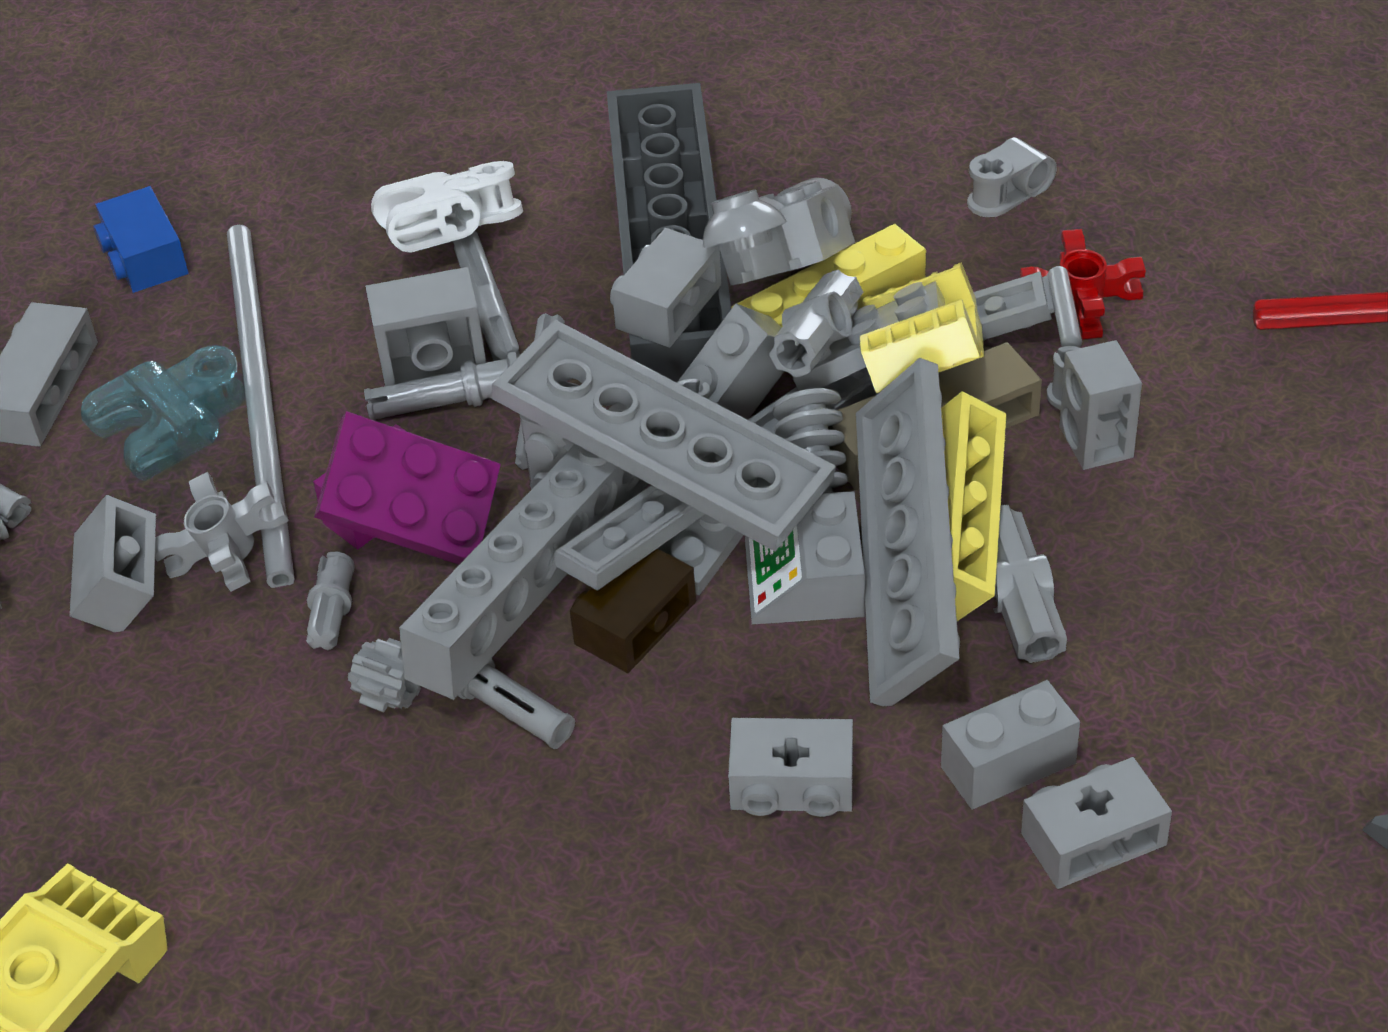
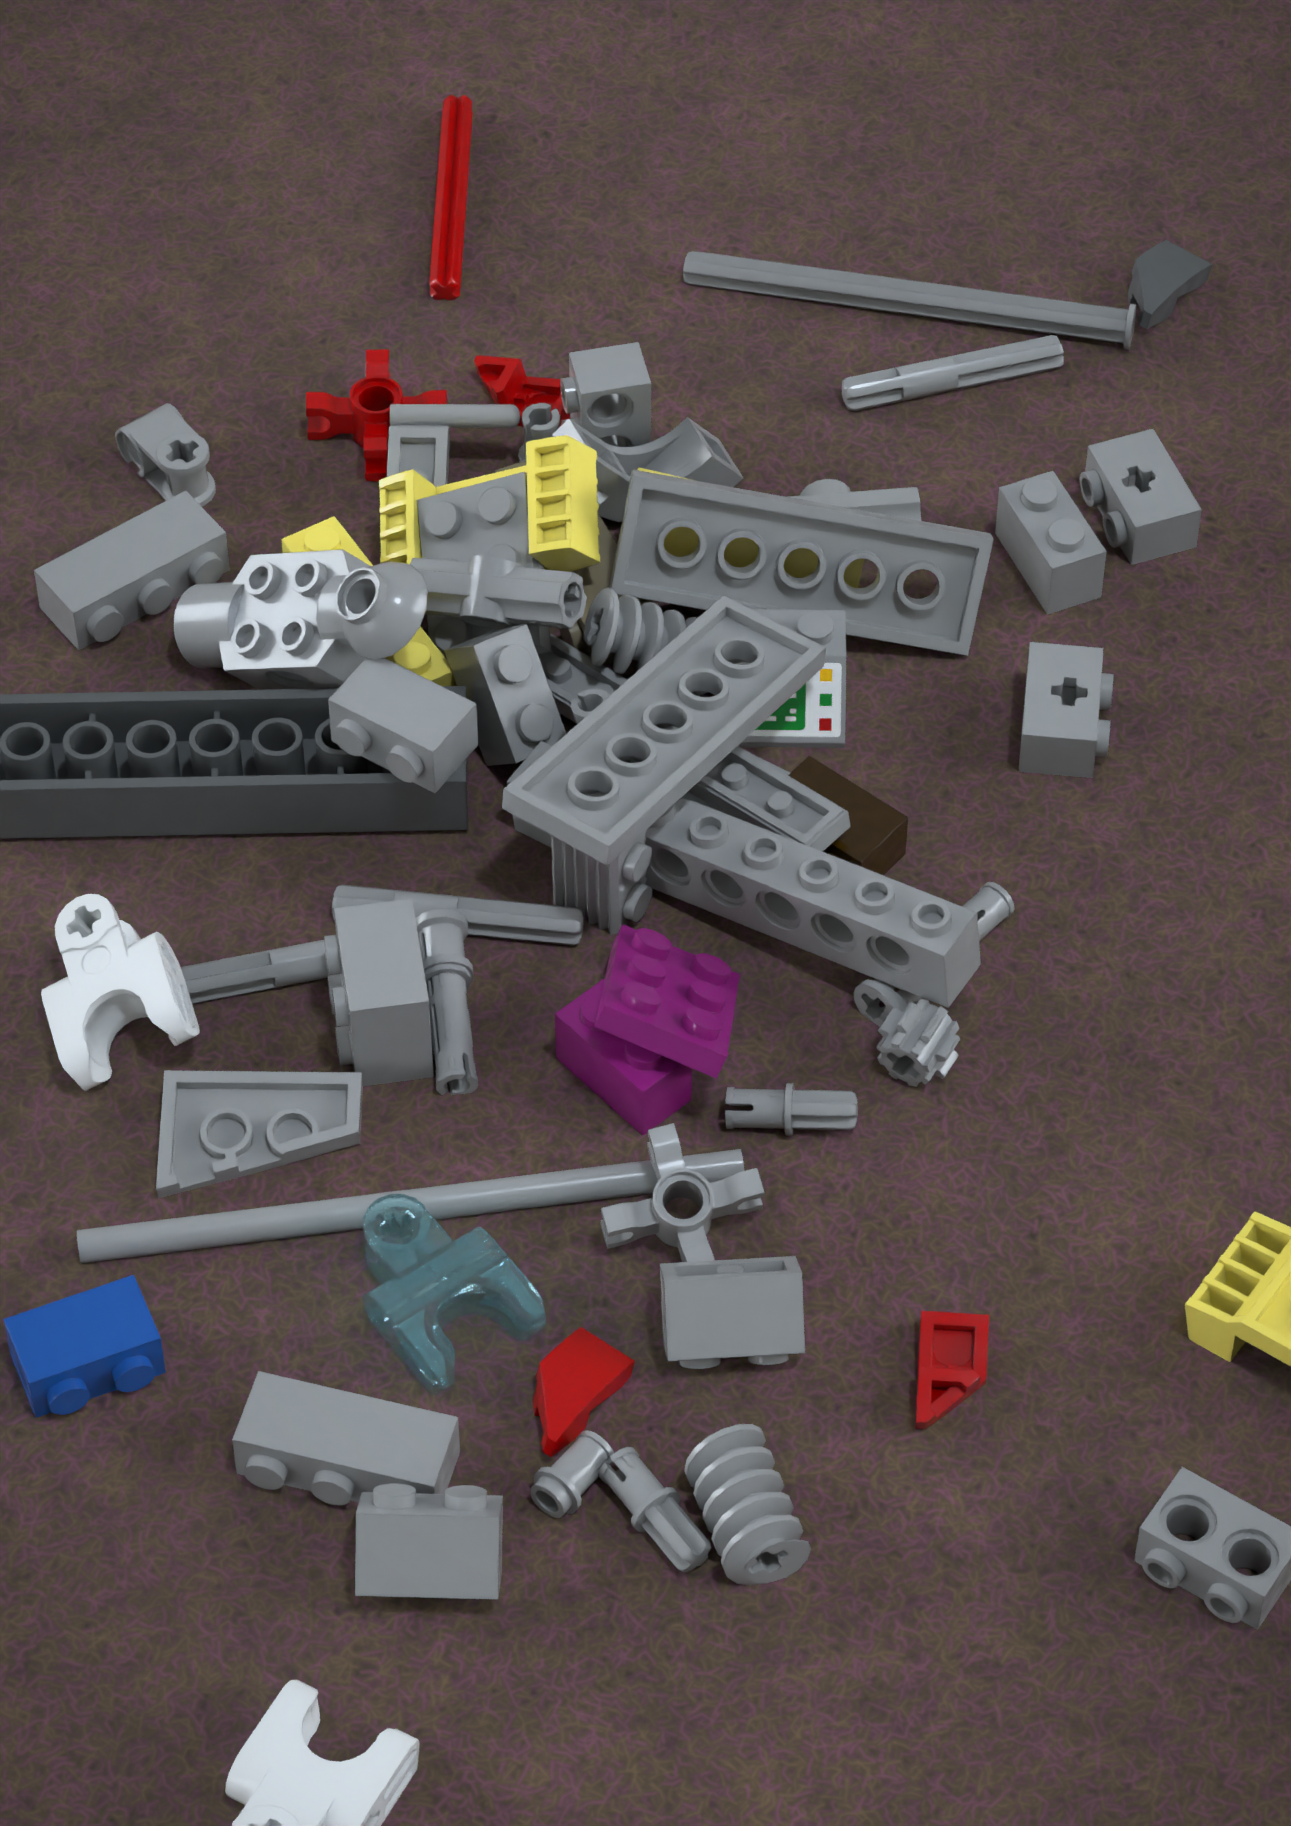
camera: 90 degrees left, 5 degrees up
(65, 727) = (949, 1362): none -> red slope
(70, 490) = (573, 1383): none -> red slope
(335, 298) = (251, 1122): none -> light grey wing
(877, 171) = (132, 570): none -> light grey brick
(1037, 452) = (682, 452): none -> light grey arch
(1151, 368) = (509, 385): none -> red slope
(1252, 674) = (952, 373): none -> light grey axle
(1353, 749) = (911, 297): none -> light grey axle

